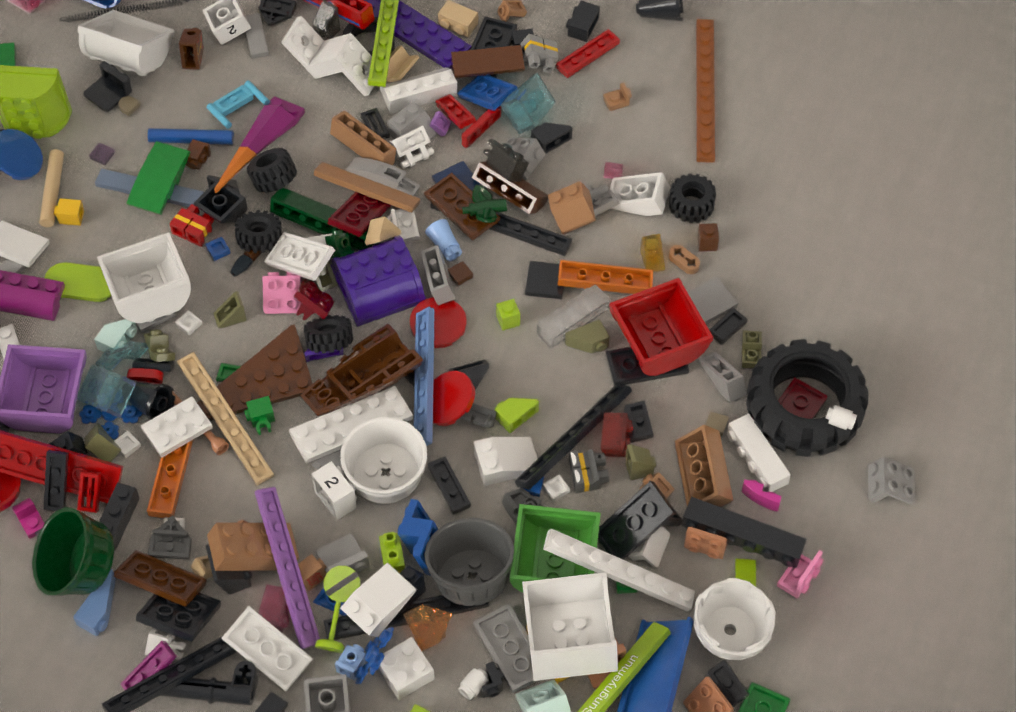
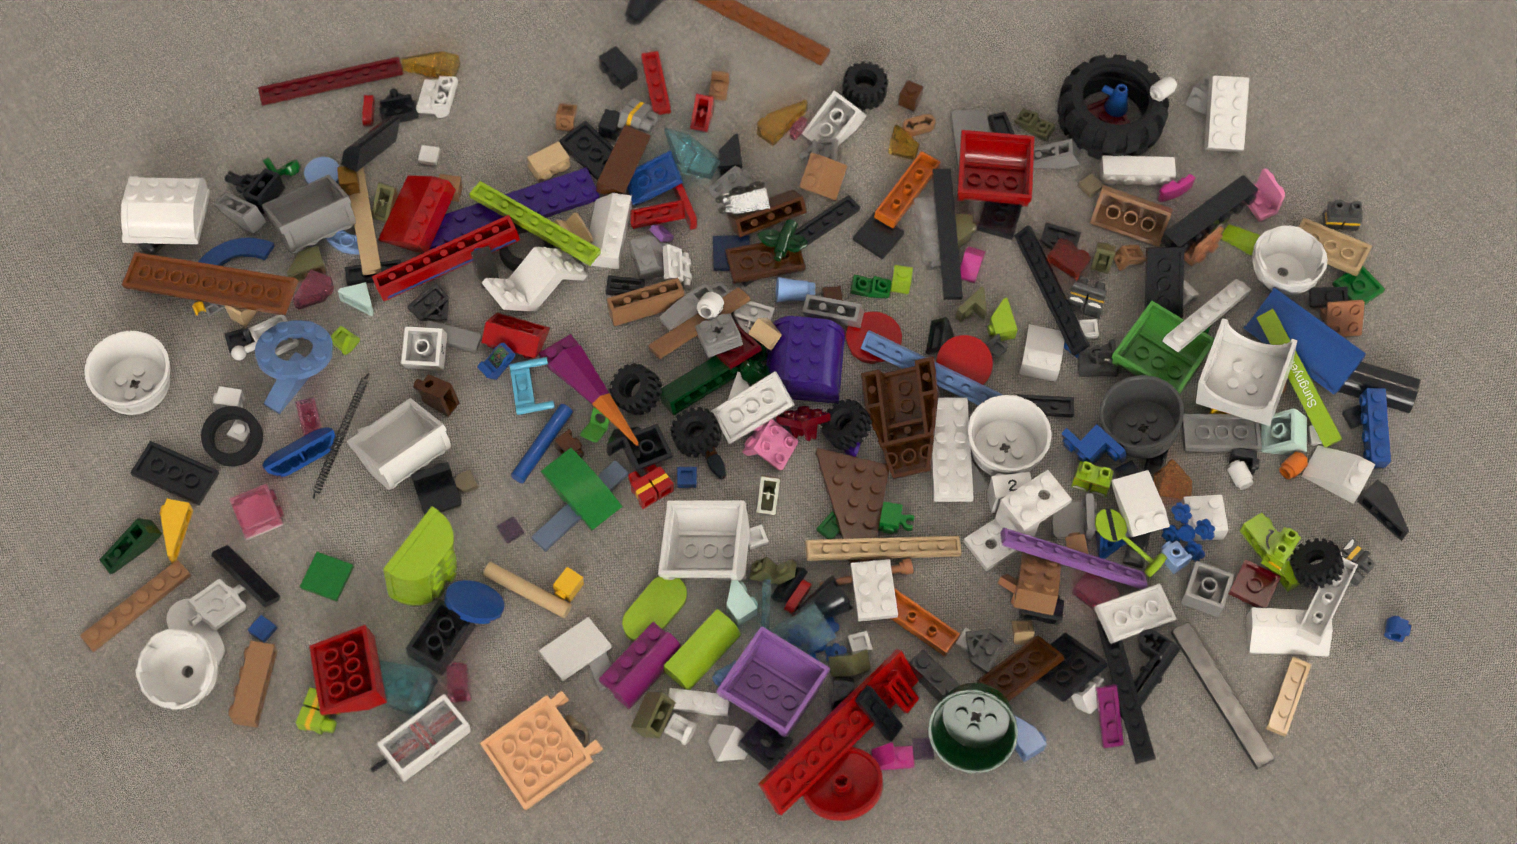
camera: 65 degrees left, 5 degrees up
(57, 329) = (702, 650): none -> lime brick
(218, 164) = (595, 428): none -> bright green bracket
(243, 71) = (497, 361): none -> blue leg
(279, 72) = (518, 334): none -> red slope
(306, 504) = (1018, 512): none -> white bracket
(355, 200) = (719, 335): none -> light grey brick
(379, 180) = (710, 305): none -> white head
(487, 295) = (875, 287): none -> green slope
(522, 382) = (975, 303): none -> olive slope
(564, 362) = (971, 264): none -> dark pink slope
(565, 327) = (947, 234): none -> black tile
(579, 97) = (702, 112): none -> red slope
(604, 151) = (778, 122): none -> clear yellow slope
(788, 662) = (1342, 250): none -> tan plate
(817, 401) = (1117, 102): none -> blue piece
(833, 657) = (1343, 215): none -> dark grey hips
(869, 496) = (1226, 113): none -> white brick

